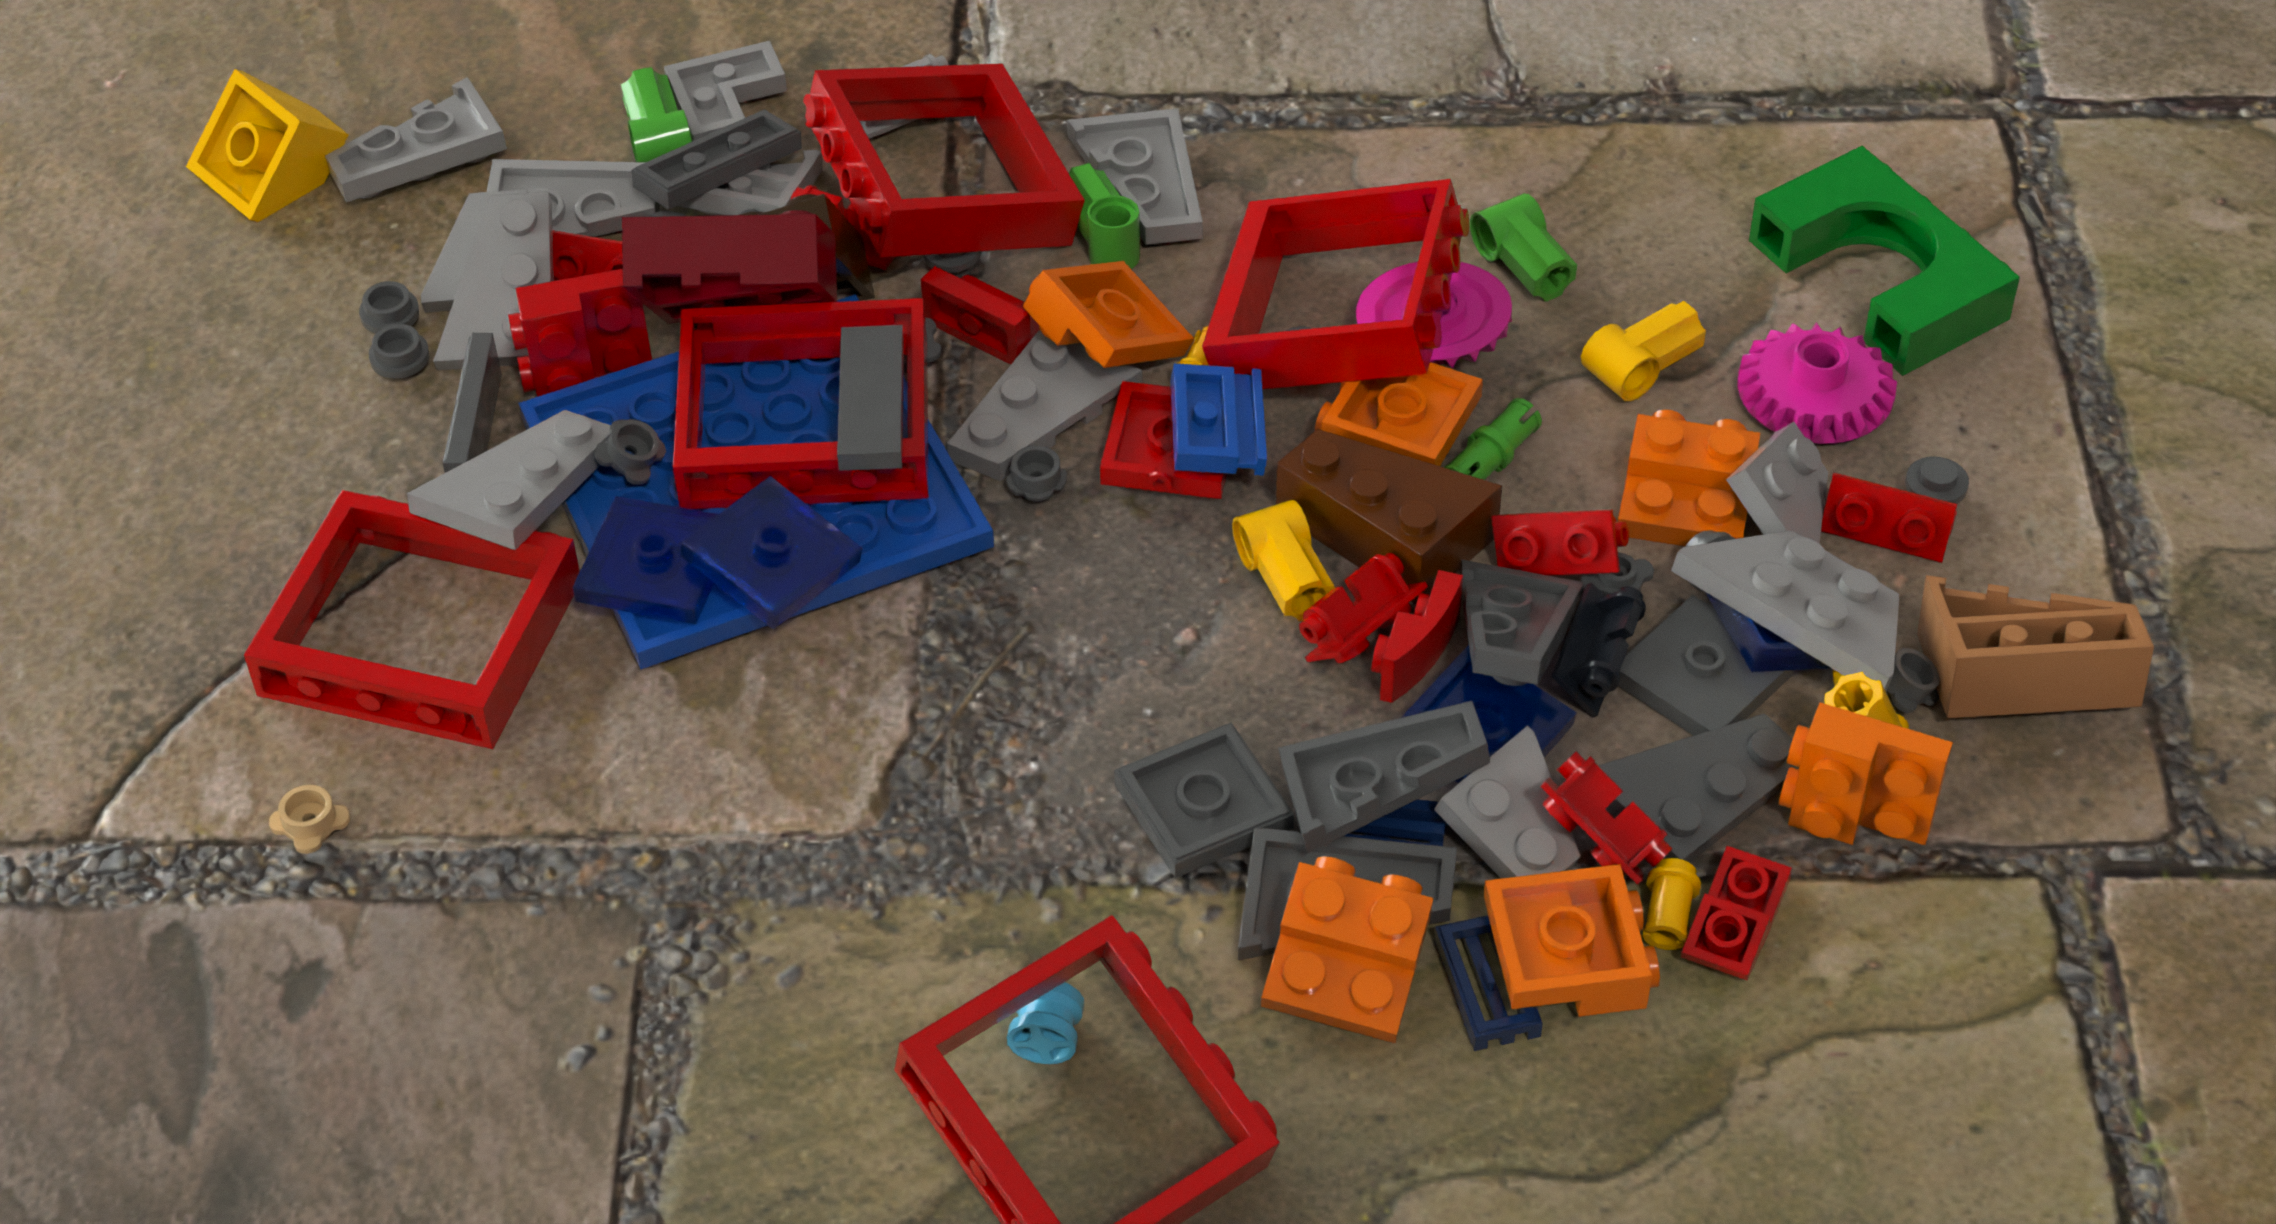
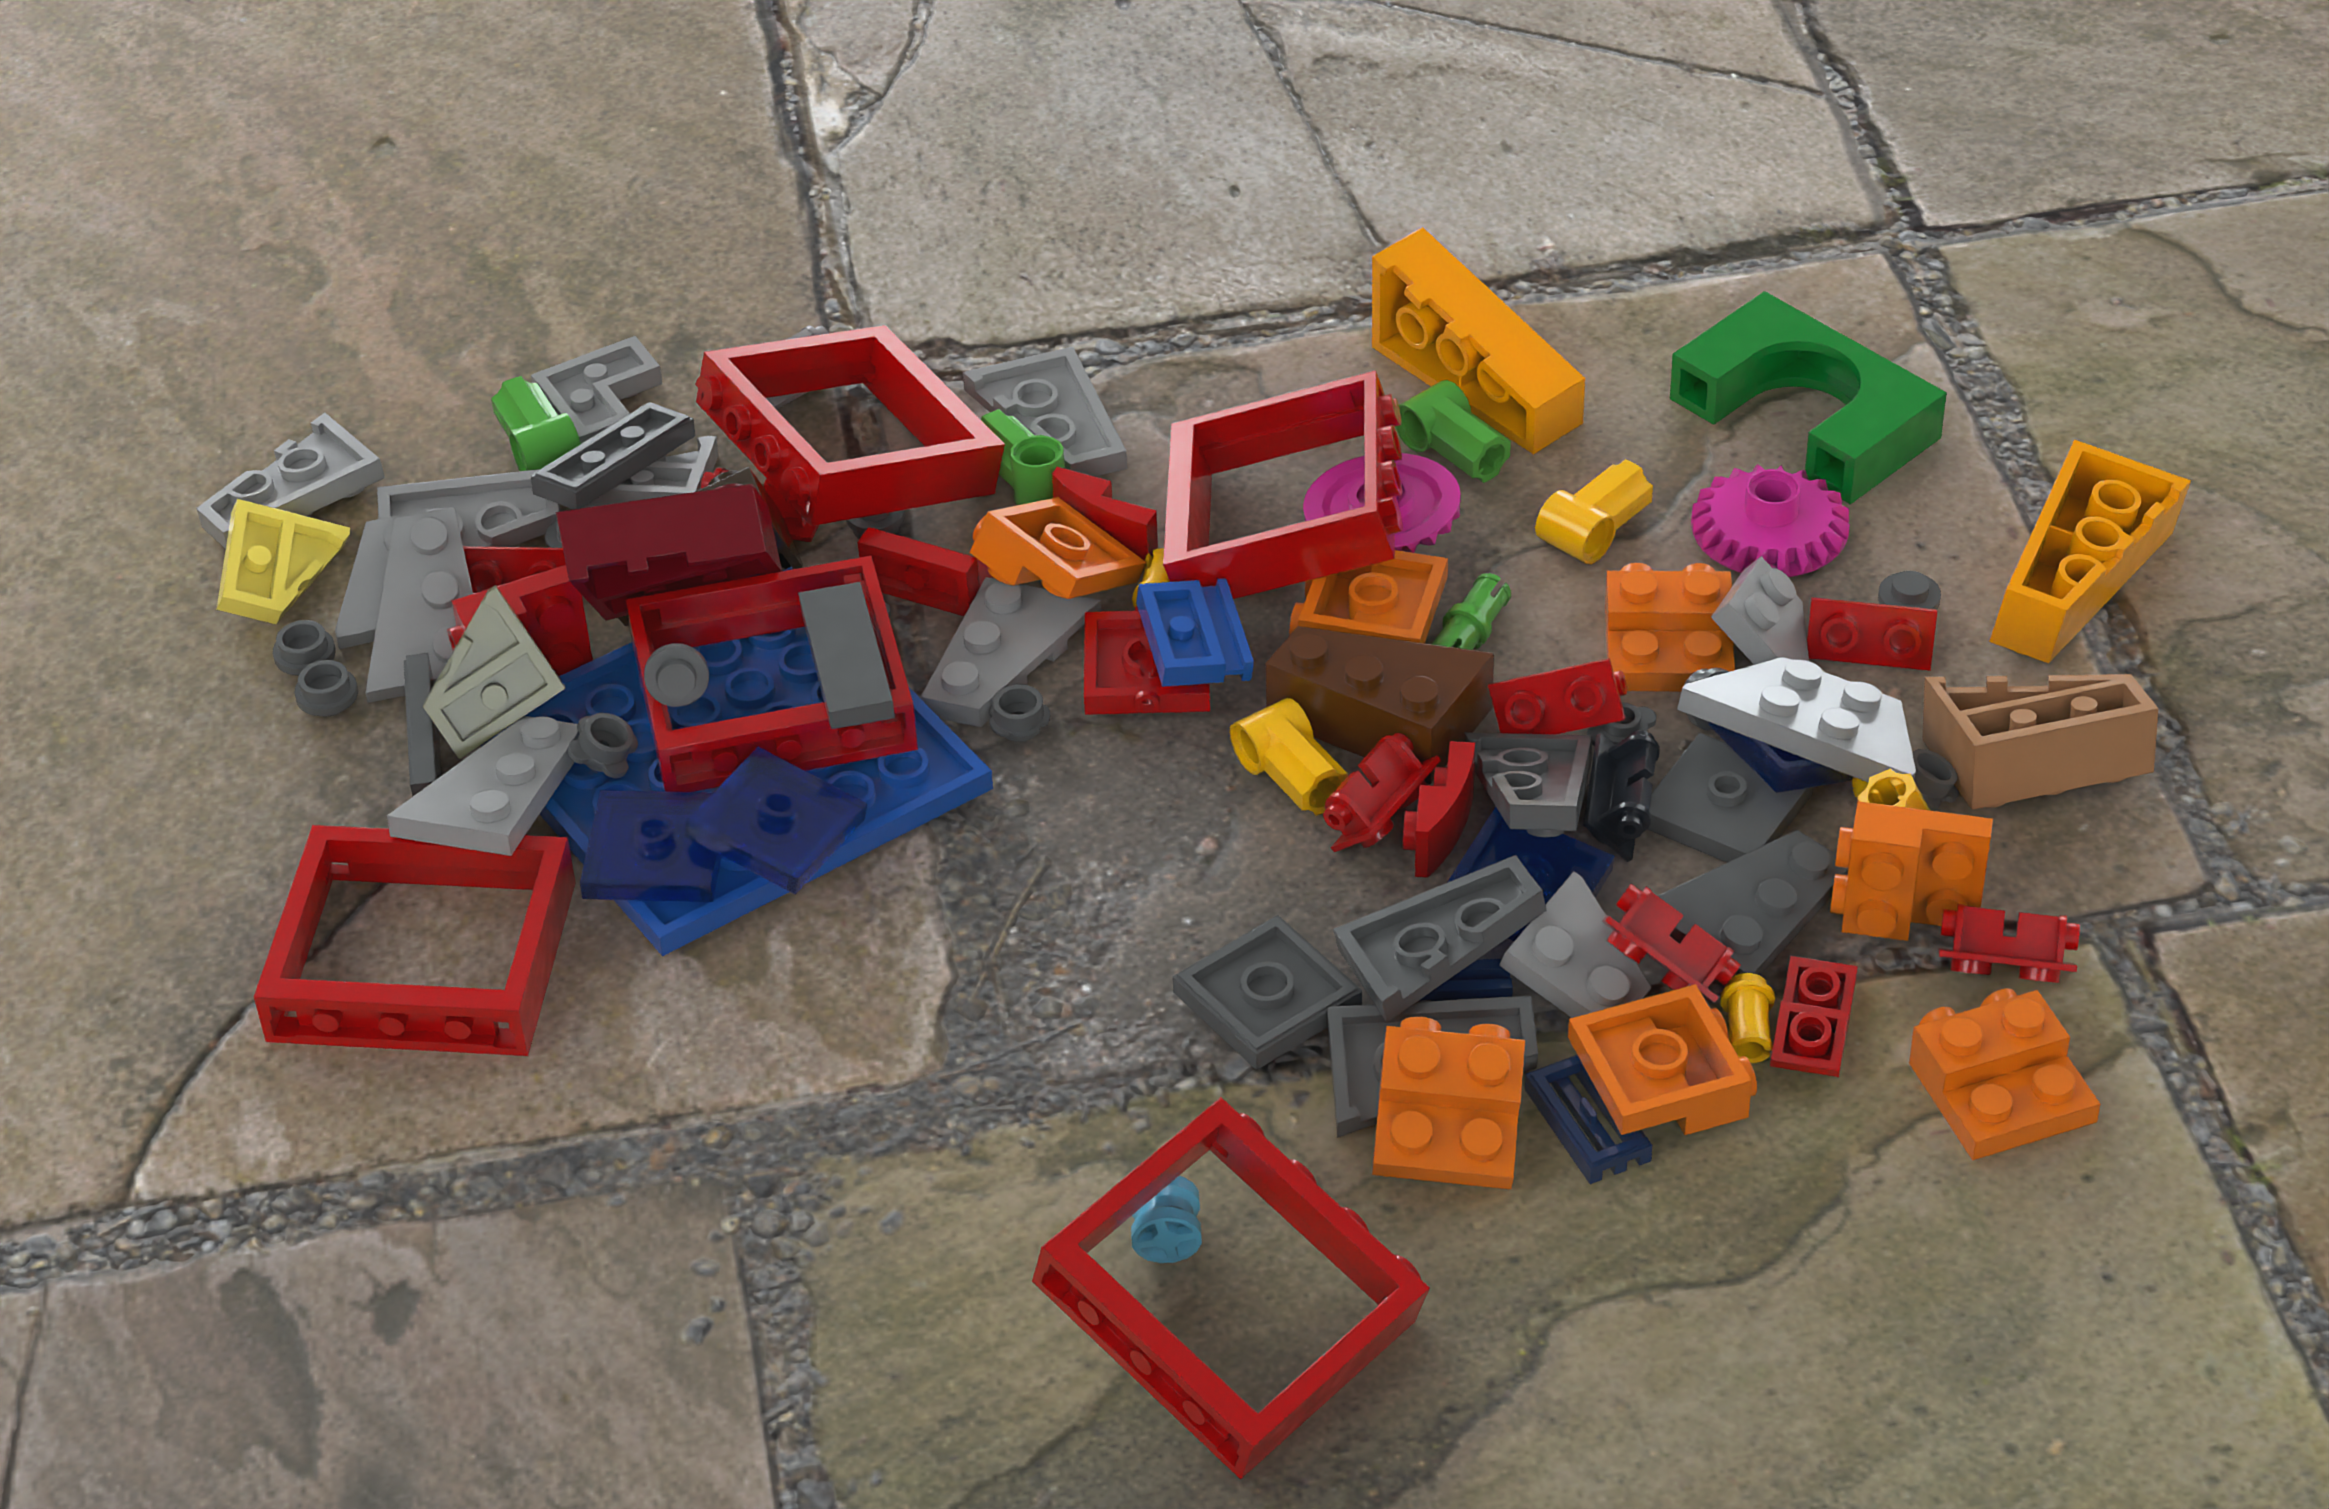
camera: 10 degrees left, 5 degrees down
(263, 147) = (127, 509): yellow slope -> none
(308, 817) = (357, 1146): tan plate -> none
(383, 217) = (273, 559): none -> light yellow wing
(537, 369) = (490, 678): none -> olive wing
(704, 394) = (676, 675): none -> dark grey plate
(1157, 268) = (1092, 497): none -> red slope
(1552, 148) = (1453, 328): none -> light orange wedge
(1912, 1004) = (2001, 1072): none -> orange plate
(1922, 865) = (2036, 948): none -> red hinge
(2126, 455) = (2086, 544): none -> light orange wedge

